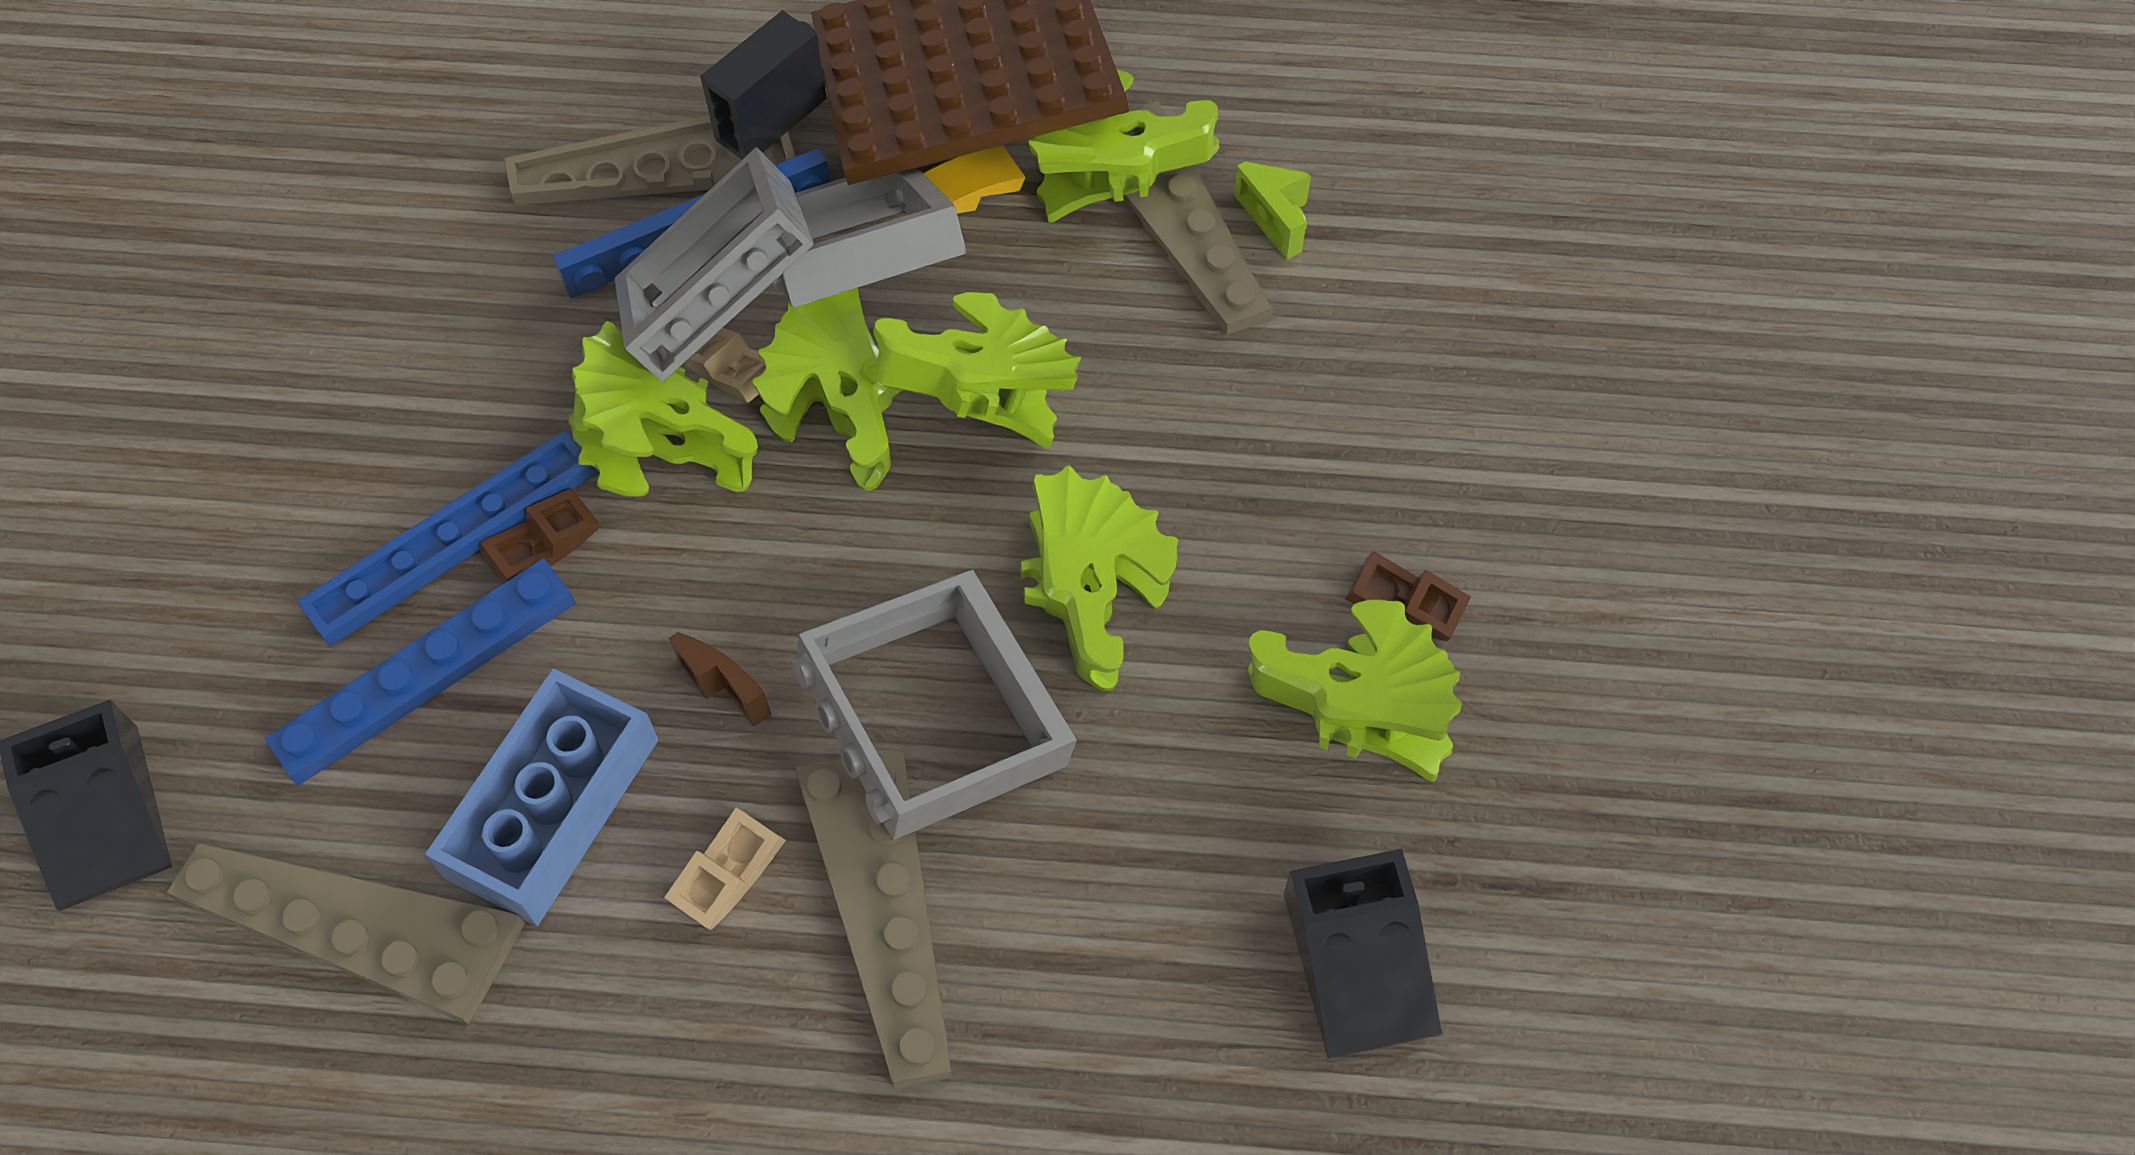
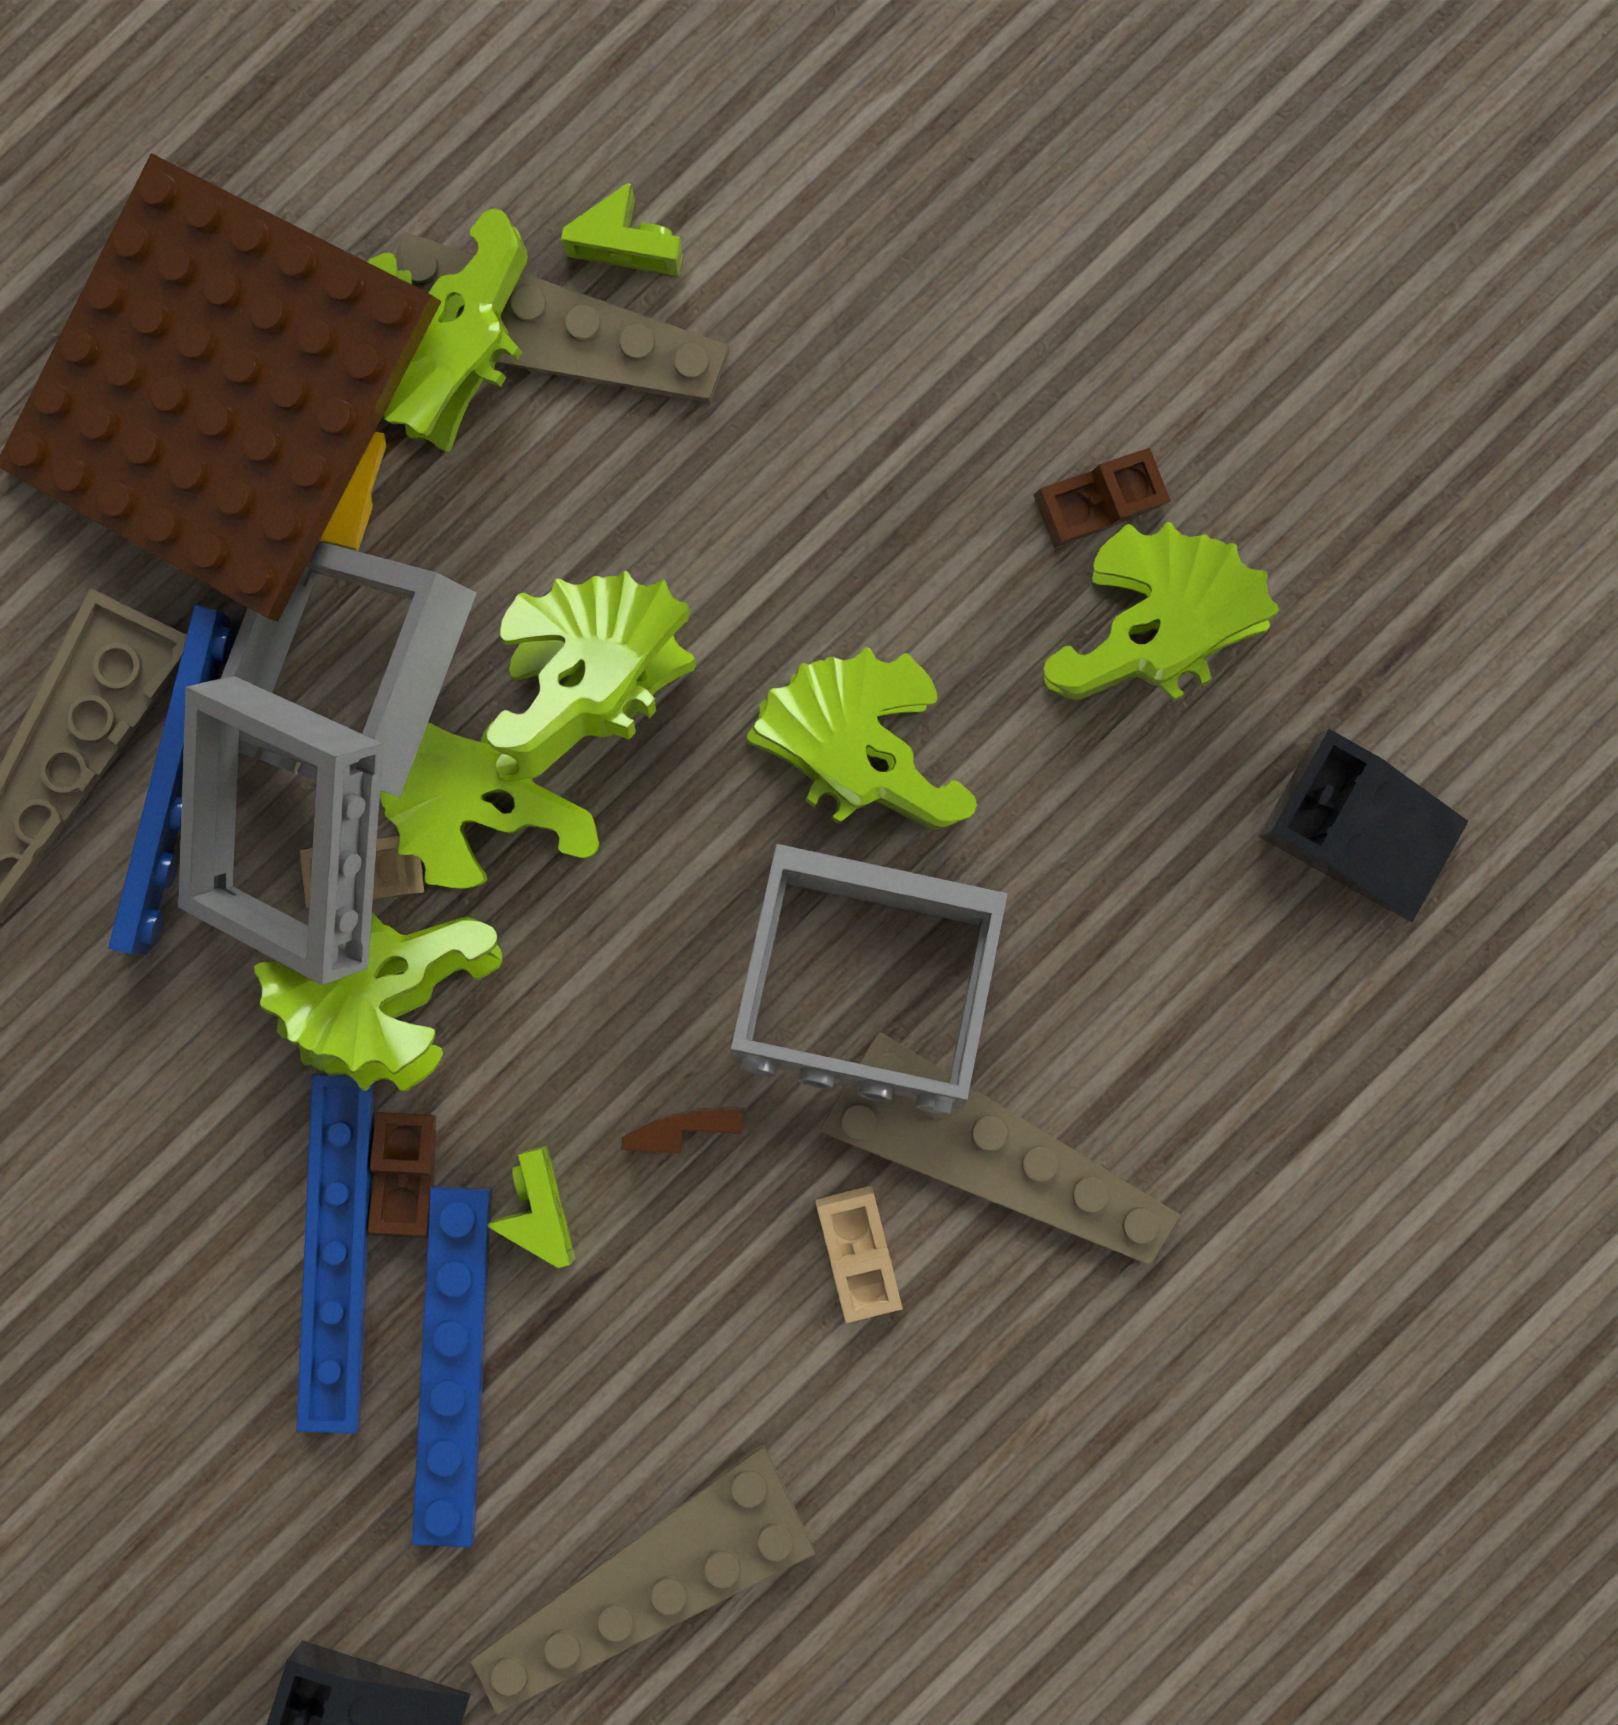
camera: 50 degrees left, 25 degrees up
(543, 796) = (680, 1358): medium blue brick -> none
(579, 641) = (543, 1227): none -> lime slope
(764, 85) = (88, 602): black brick -> none

